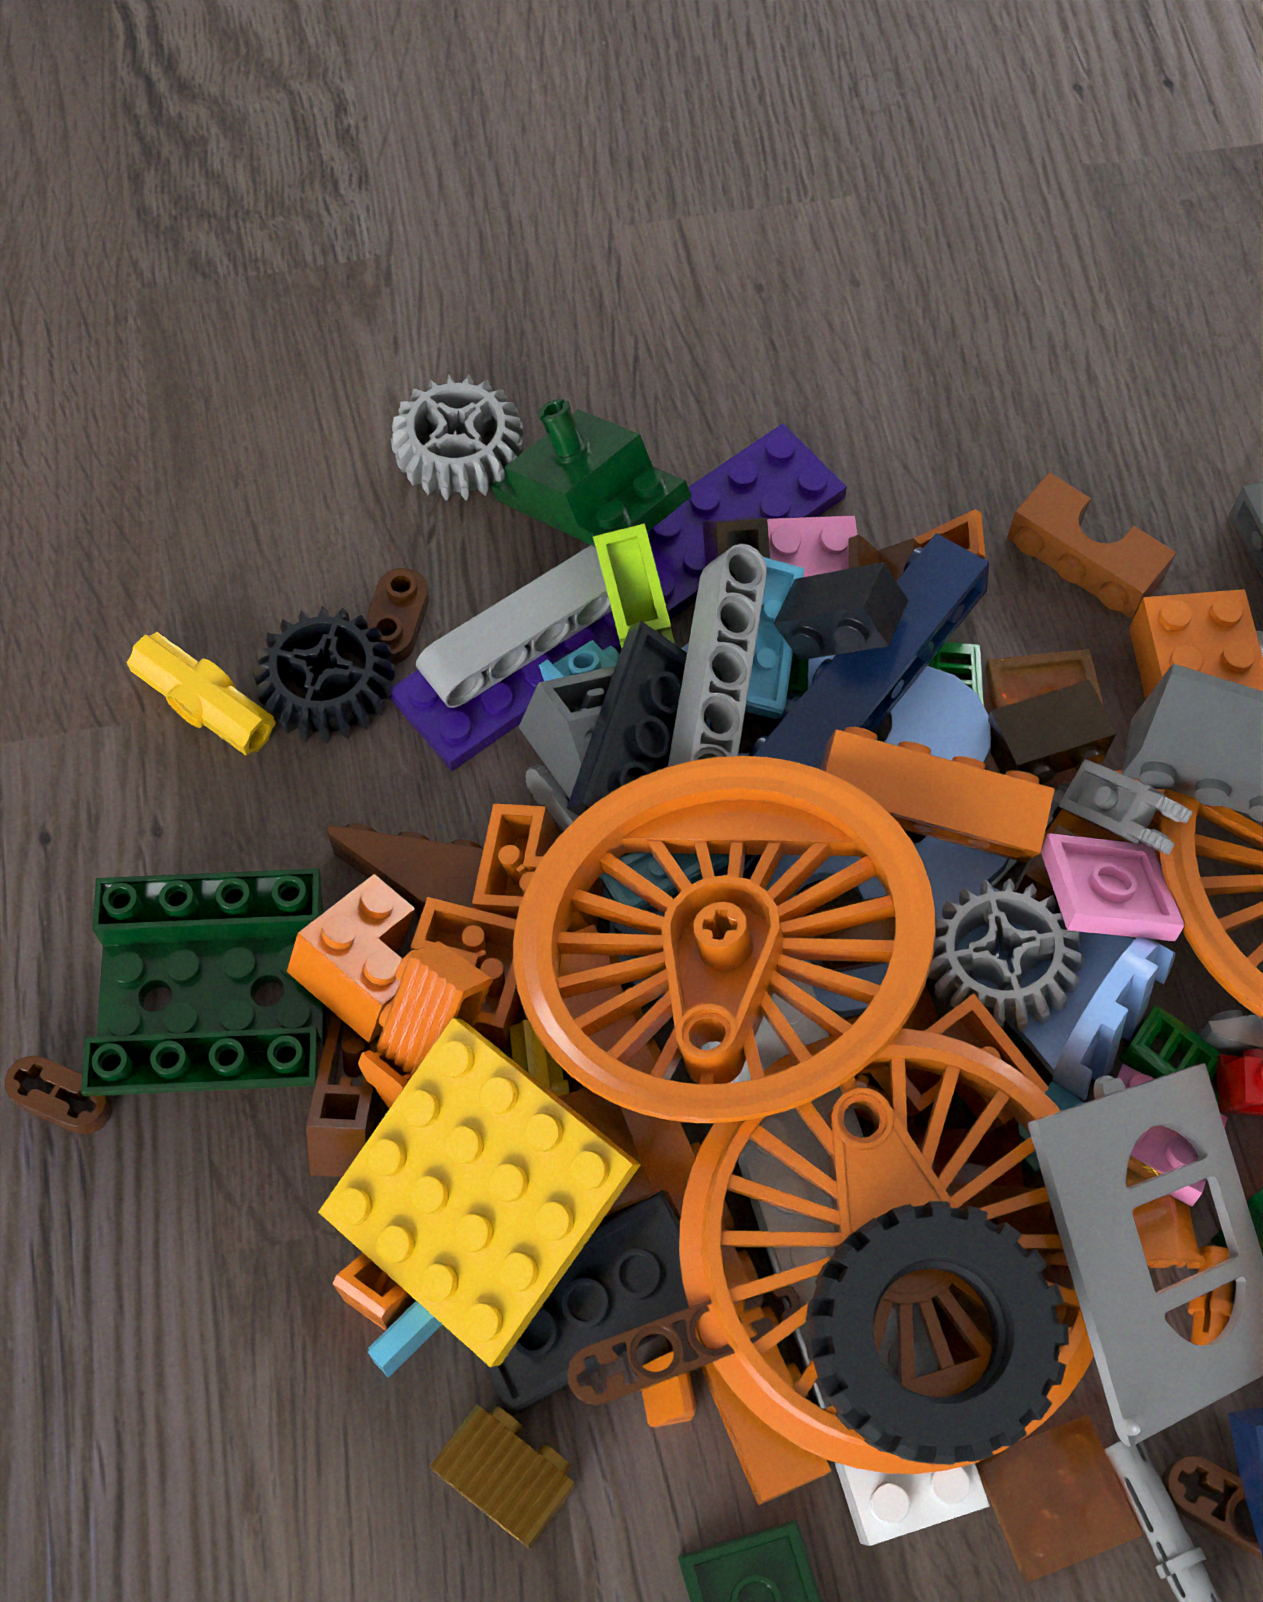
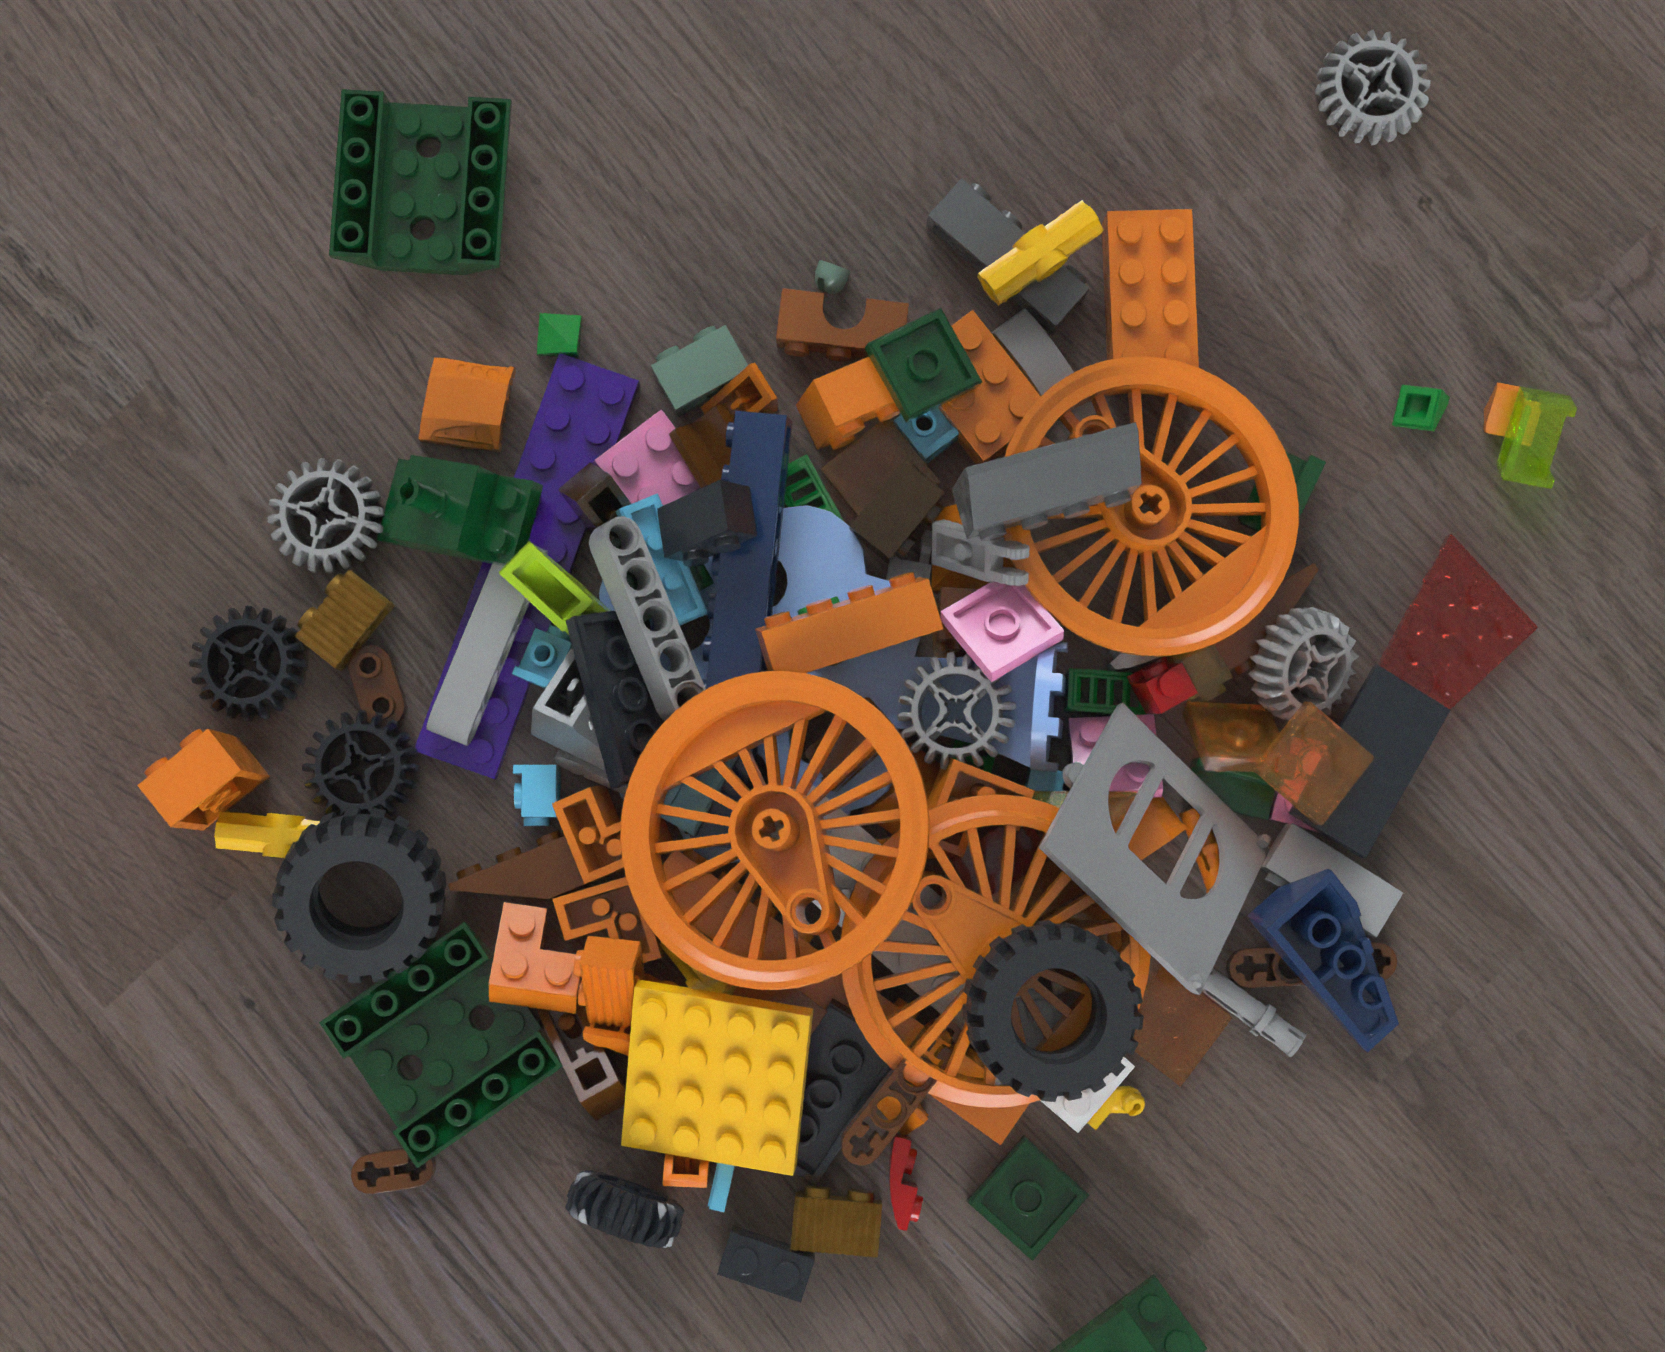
camera: 35 degrees left, 20 degrees up
(161, 575) = (202, 779): none -> orange brick
(179, 732) = (350, 948): none -> black tyre
(262, 539) = (236, 678): none -> black gear
(272, 1289) = (624, 1209): none -> black gear
(390, 1468) = (766, 1264): none -> black brick
(408, 532) = (343, 619): none -> pearl gold brick
(475, 795) = (537, 792): none -> medium azure brick
(605, 1492) = (903, 1193): none -> red slope
(668, 416) = (466, 404): none -> orange slope
(712, 210) = (390, 187): none -> dark green slope
(793, 411) = (559, 335): none -> green slope
(911, 503) = (699, 369): none -> sand green brick
(935, 1548) = (1122, 1100): none -> yellow arm
(1060, 596) = (841, 403): none -> orange brick
(1106, 499) = (830, 277): none -> sand green hinge
(1123, 680) = (931, 442): none -> medium azure brick
(1164, 600) = (923, 365): none -> dark green tile

